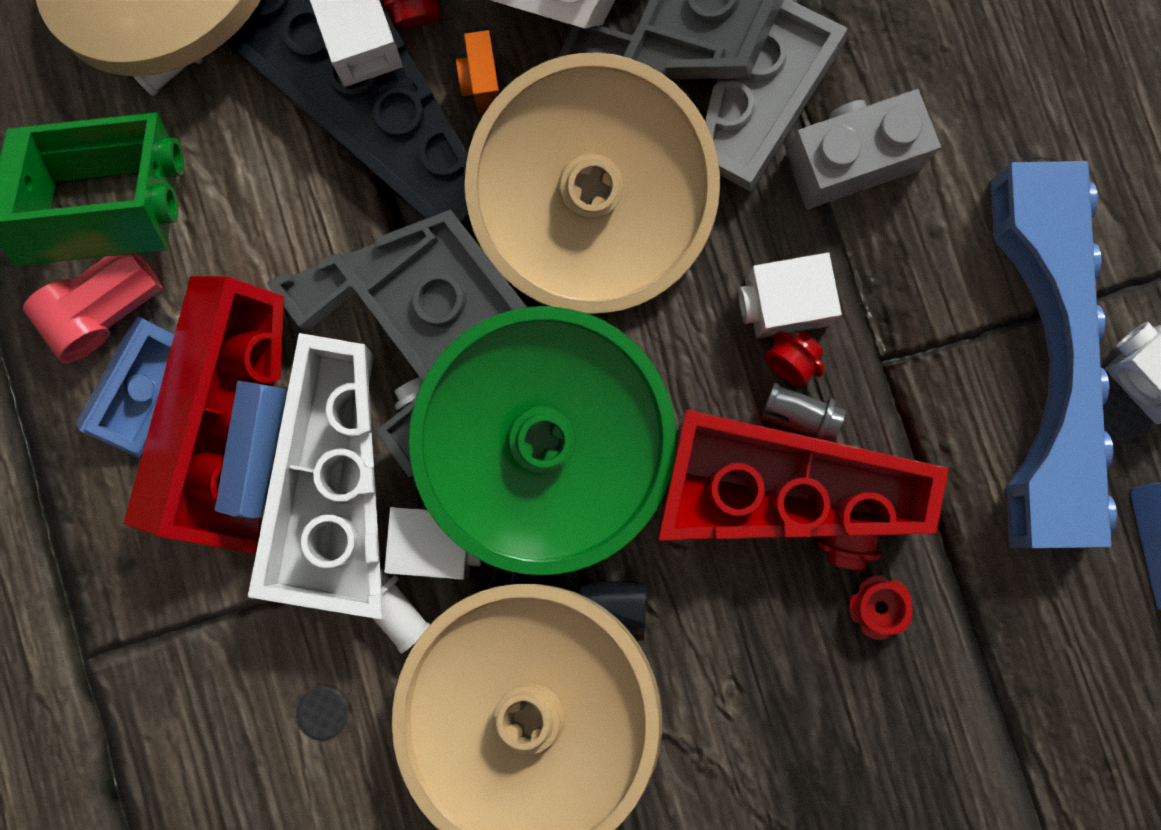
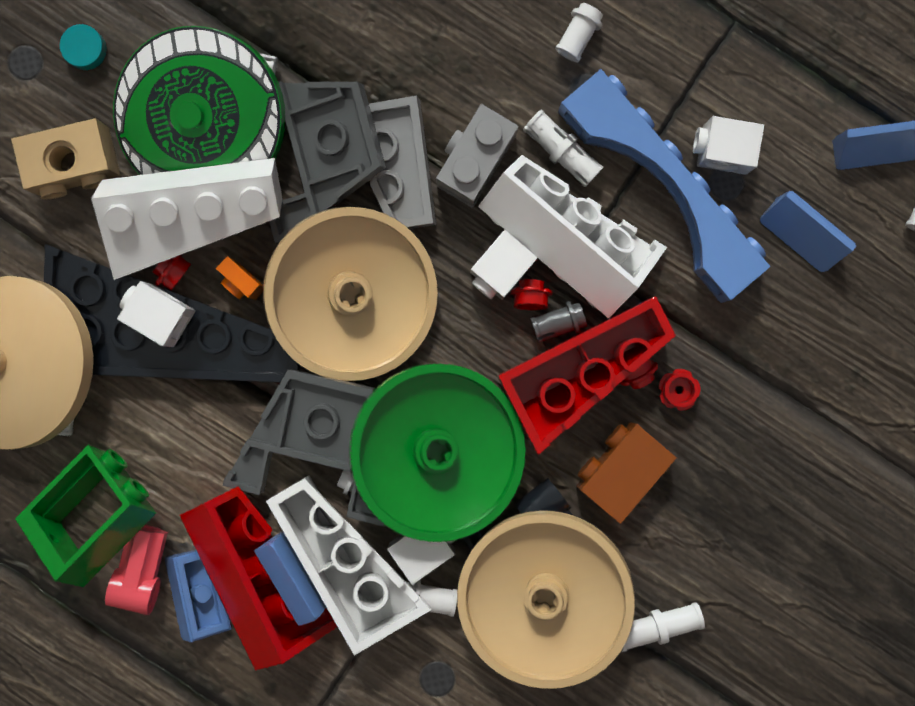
camera: 45 degrees left, 5 degrees up
(742, 648) = (624, 470): none -> dark orange brick
(898, 322) = (571, 235): none -> white wedge
(966, 222) = (563, 148): none -> white pin
(1105, 103) = (579, 32): none -> white pin

